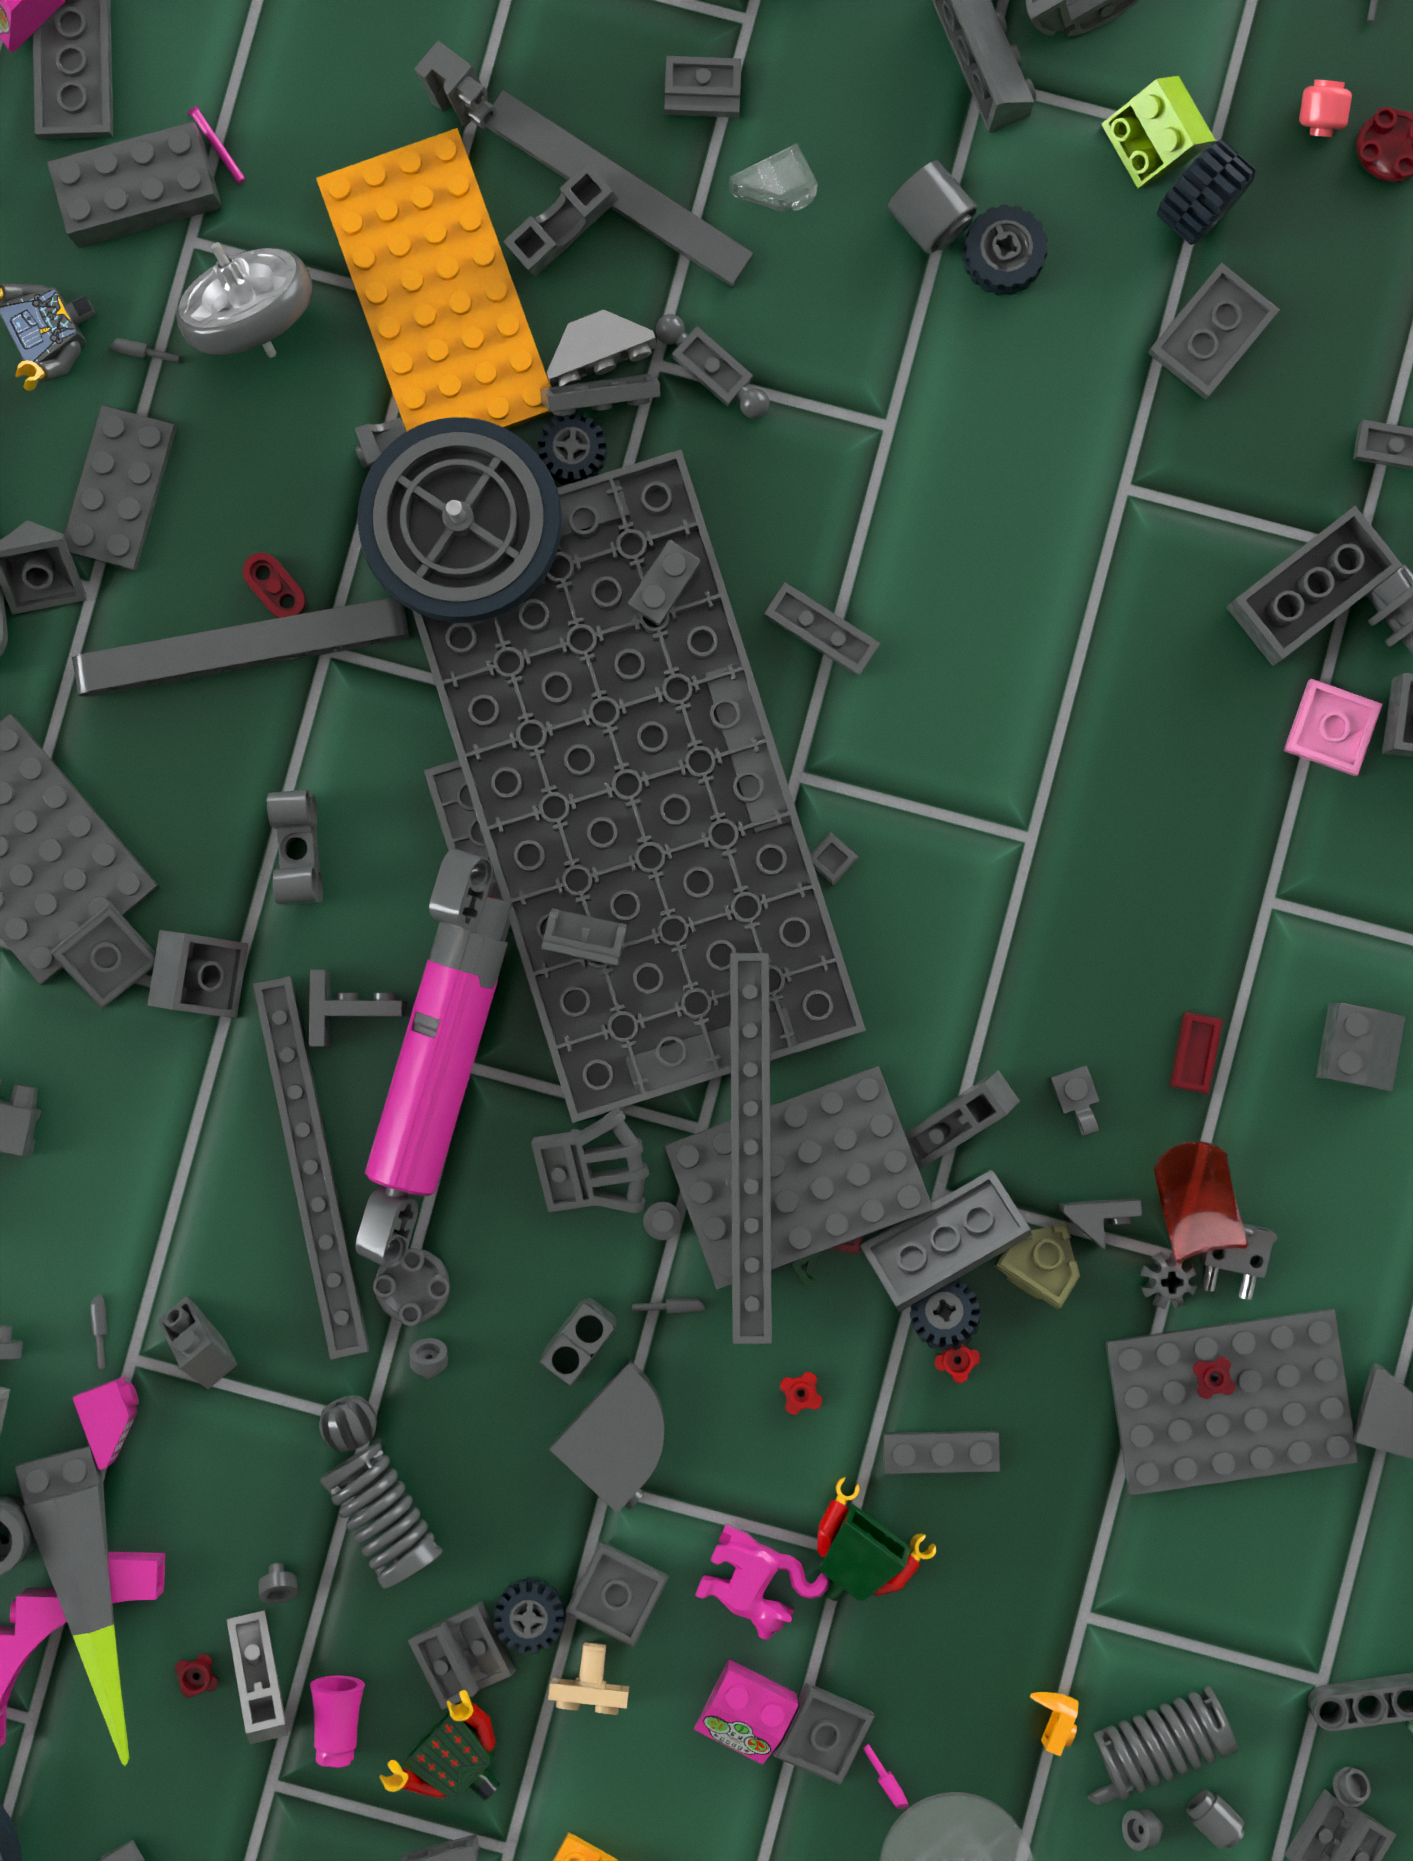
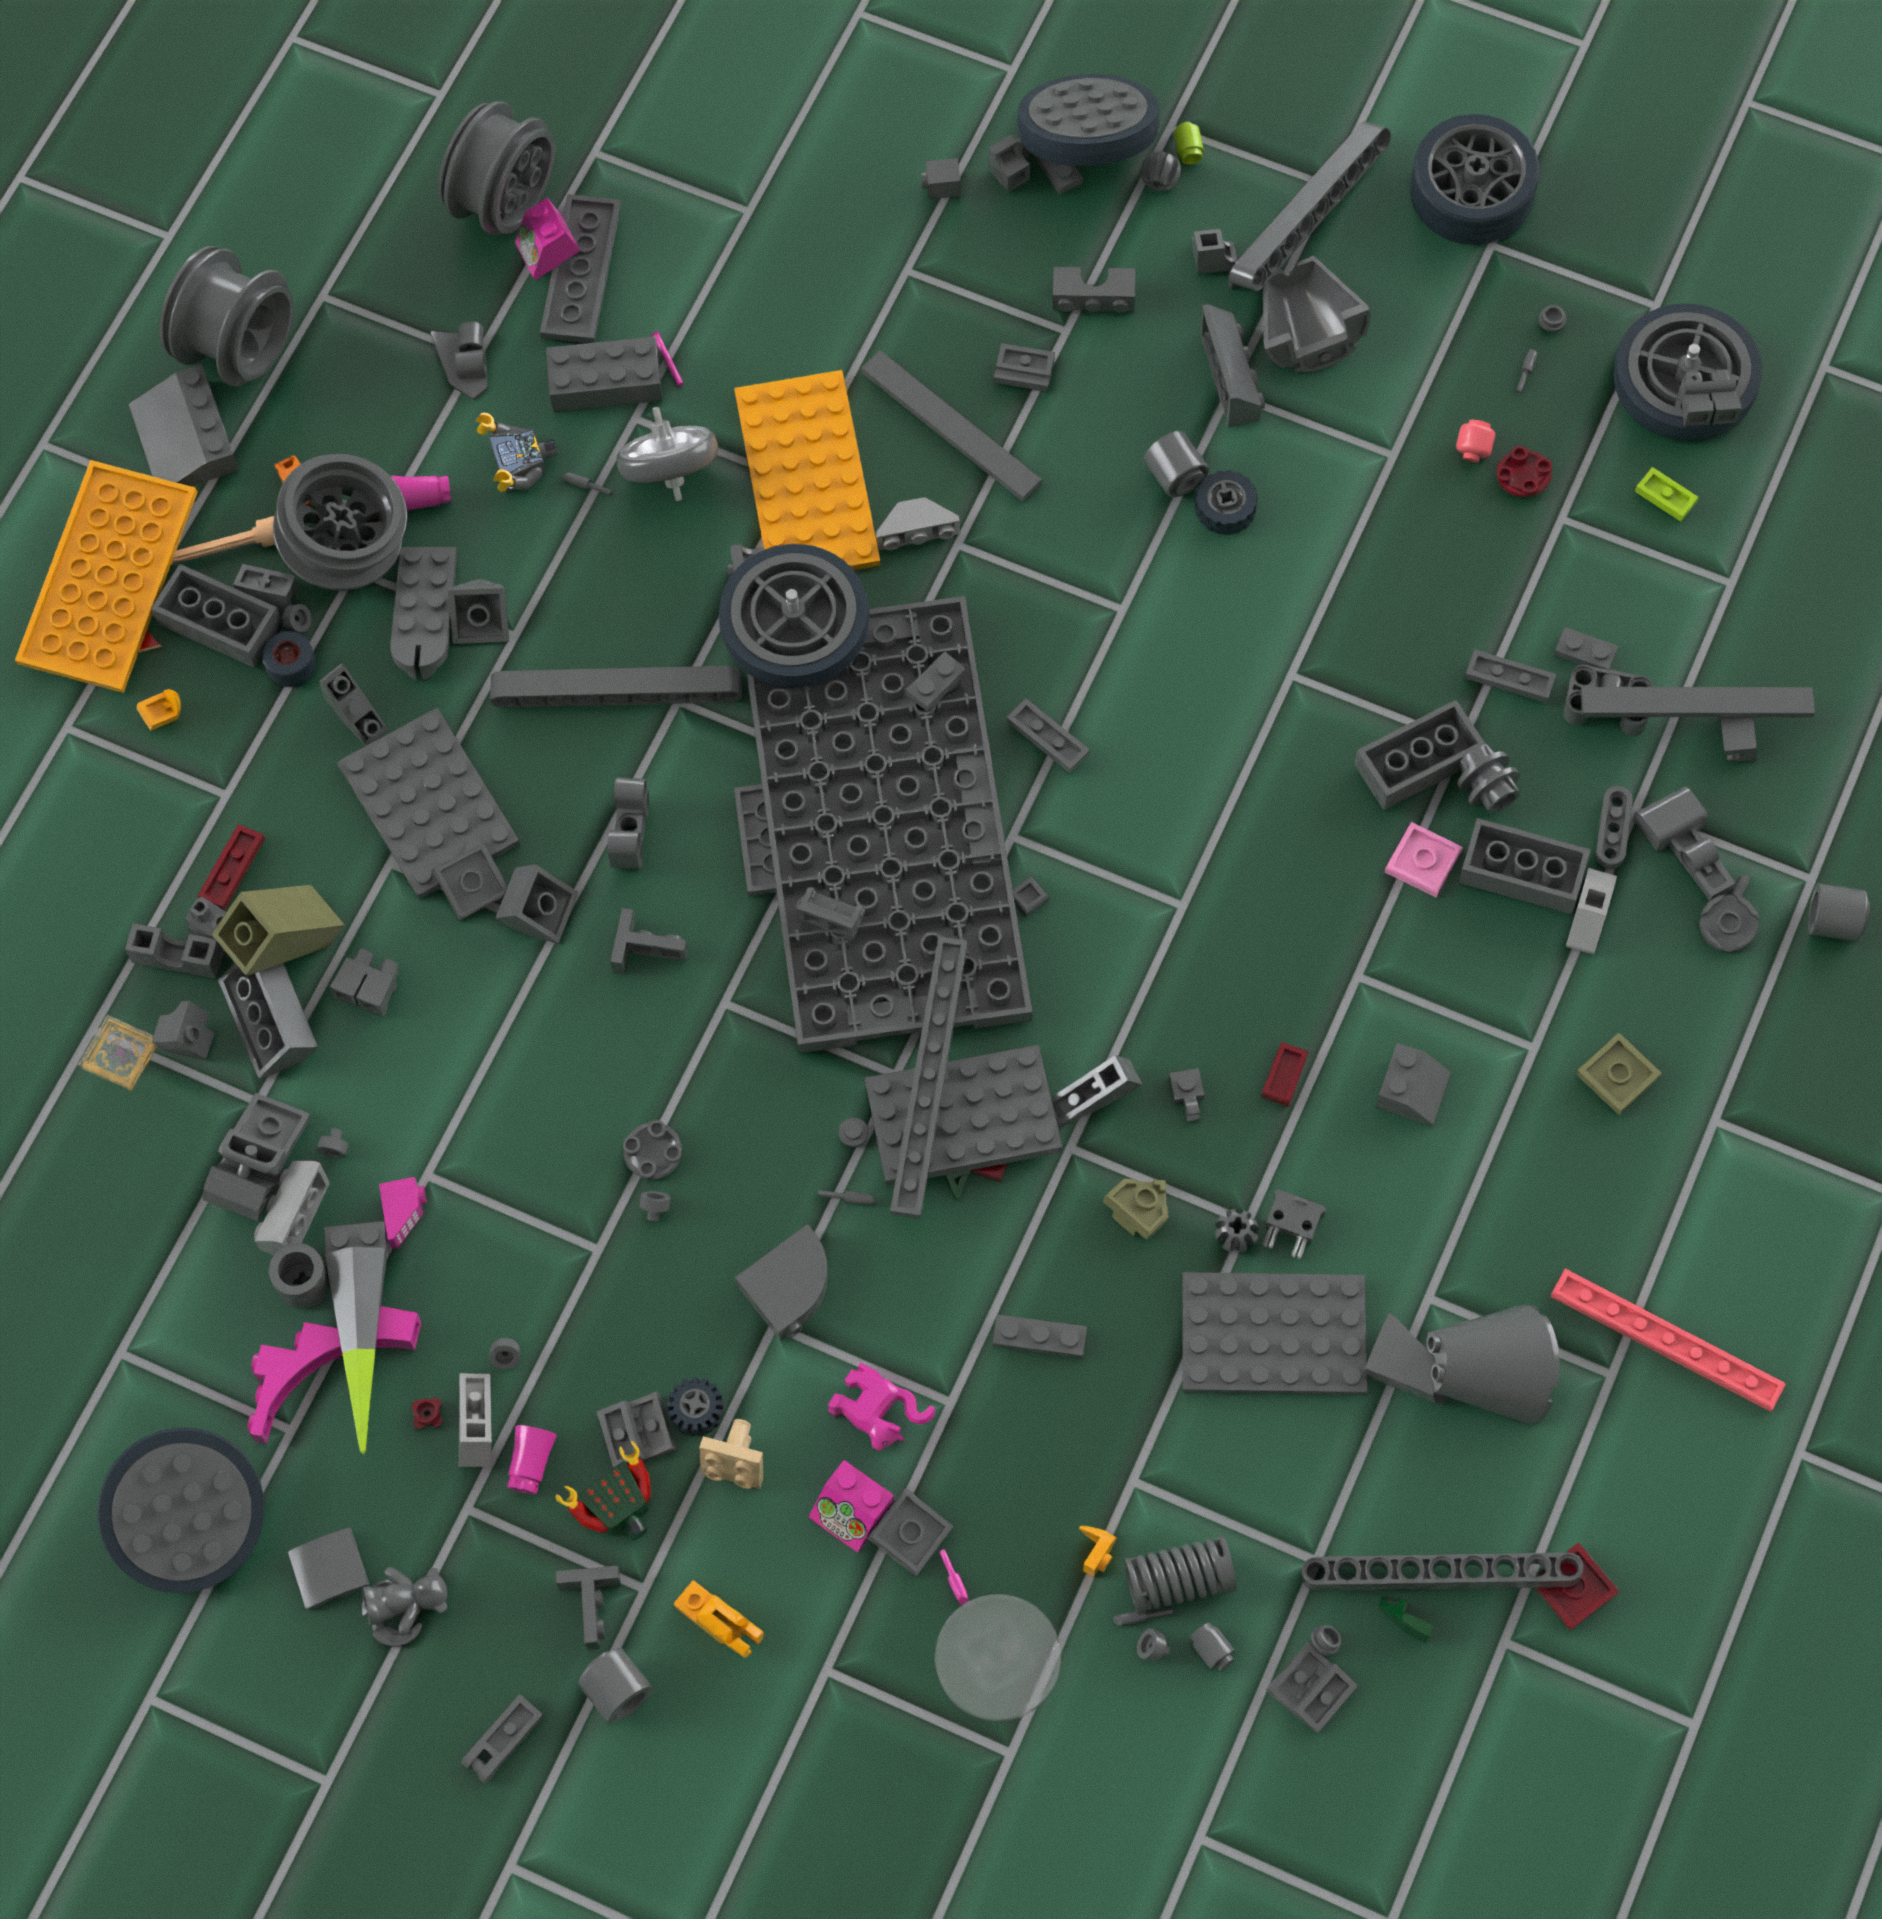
camera: 10 degrees right, 20 degrees down
(99, 1327) = (407, 1147): dark grey piece -> none
(119, 487) = (549, 570): dark grey plate -> none
(196, 1343) = (480, 1165): dark grey slope -> none
(275, 587) = (649, 652): dark red plate -> none
(311, 1167) = (593, 1055): dark grey plate -> none
(347, 1423) = (584, 1238): dark grey piece -> none
(388, 1495) = (595, 1306): dark grey piece -> none
(435, 1054) = (704, 978): piece -> none
(454, 82) = (845, 339): dark grey hips -> none
(545, 237) = (891, 447): dark grey arch -> none
(567, 1173) = (787, 1081): dark grey plate -> none
(570, 1339) = (777, 1218): dark grey piece -> none
(572, 434) = (886, 578): black wheel -> none
(600, 394) = (912, 554): dark grey plate -> none
(617, 1593) = (767, 1401): dark grey plate -> none
(712, 366) = (998, 549): dark grey plate -> none
(777, 181) = (1066, 434): clear slope -> none
(793, 1385) = (941, 1281): red plate -> none
(863, 1554) = (964, 1395): dark green torso -> none
(946, 1242) = (1068, 1173): dark grey plate -> none
(948, 1328) = (1070, 1228): black wheel -> none
(958, 1370) = (1063, 1260): red plate -> none
(1089, 1215) = (1183, 1173): dark grey slope -> none
(1158, 131) = (1350, 439): lime slope -> none
(1198, 1200) = (1267, 1166): clear red piece -> none
(1205, 1370) = (1256, 1311): dark red plate -> none
(1206, 191) = (1377, 479): black wheel -> none
(1213, 331) = (1372, 576): dark grey plate -> none

